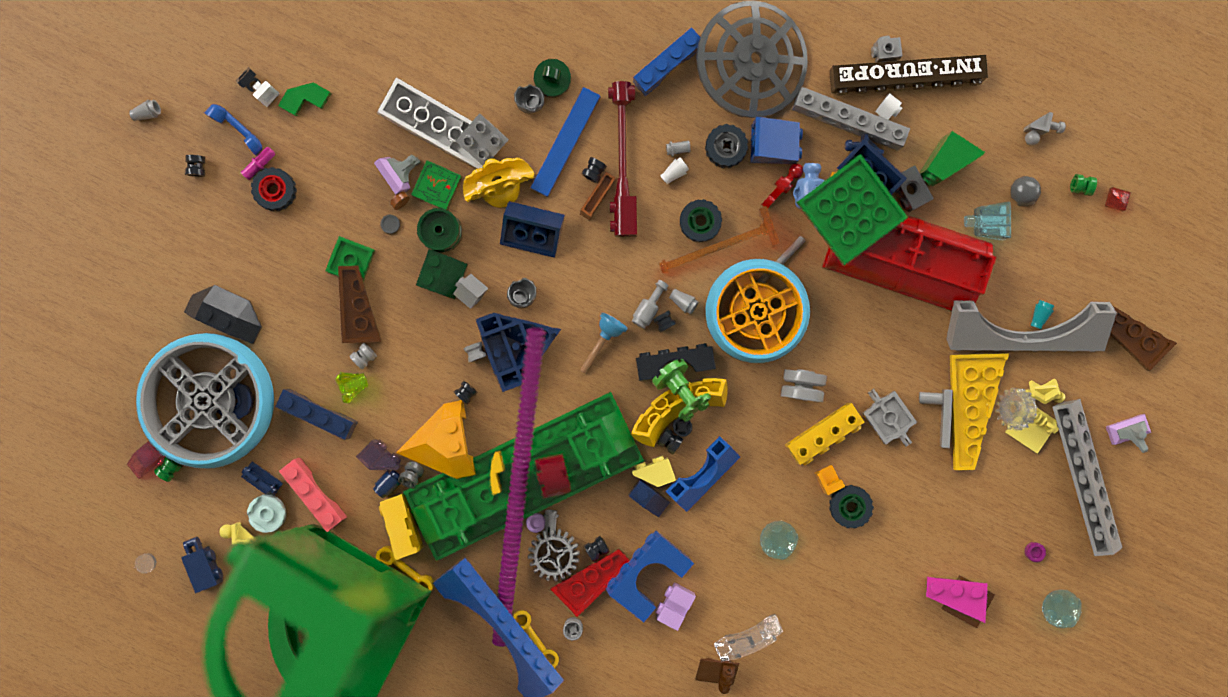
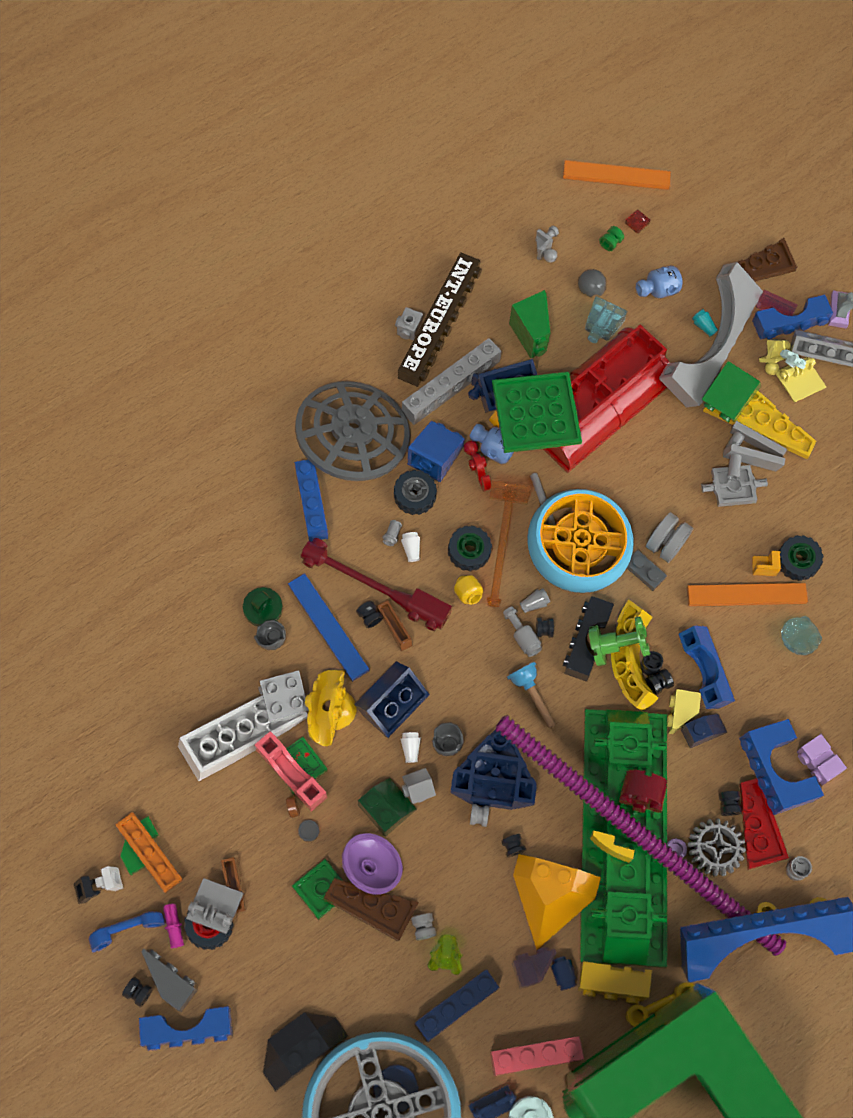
camera: 65 degrees left, 20 degrees down
(146, 110) = (51, 1011): light grey cone -> none
(176, 200) = (157, 1032): none -> blue arch
(213, 187) = (170, 986): none -> dark grey slope
(285, 185) = (214, 906): none -> light grey hinge
(301, 109) = (149, 852): none -> orange tile
(315, 189) = (232, 878): none -> dark orange piece
(397, 172) = (264, 793): piece -> none
(398, 291) = (377, 857): none -> medium lavender dish
(410, 476) = (570, 945): dark grey wheel -> none
(428, 166) = (290, 772): none -> coral arch
(429, 225) = (344, 794): dark green wheel -> none
(501, 266) = (410, 745): none -> white cone
(550, 520) = (680, 832): light grey pin -> none
(662, 240) = (468, 589): none -> yellow head
(766, 380) = (646, 570): none -> dark grey plate
(792, 477) = (747, 594): none -> orange tile
(824, 433) = (721, 545): yellow brick -> none
(889, 107) = (459, 346): white plate -> none
(919, 406) = (749, 456): none -> light grey piece
(921, 192) = (548, 359): dark grey brick -> none
(977, 371) = (731, 392): none -> green slope
(1016, 409) = (784, 372): clear gear -> none
(1044, 411) = (793, 359): none -> light aqua piece
(1060, 253) = (661, 283): none -> medium blue piece
(1076, 374) = (772, 323): none -> blue arch
(1098, 370) = (770, 300): none -> clear pink panel
(1158, 154) = (617, 175): none -> orange tile

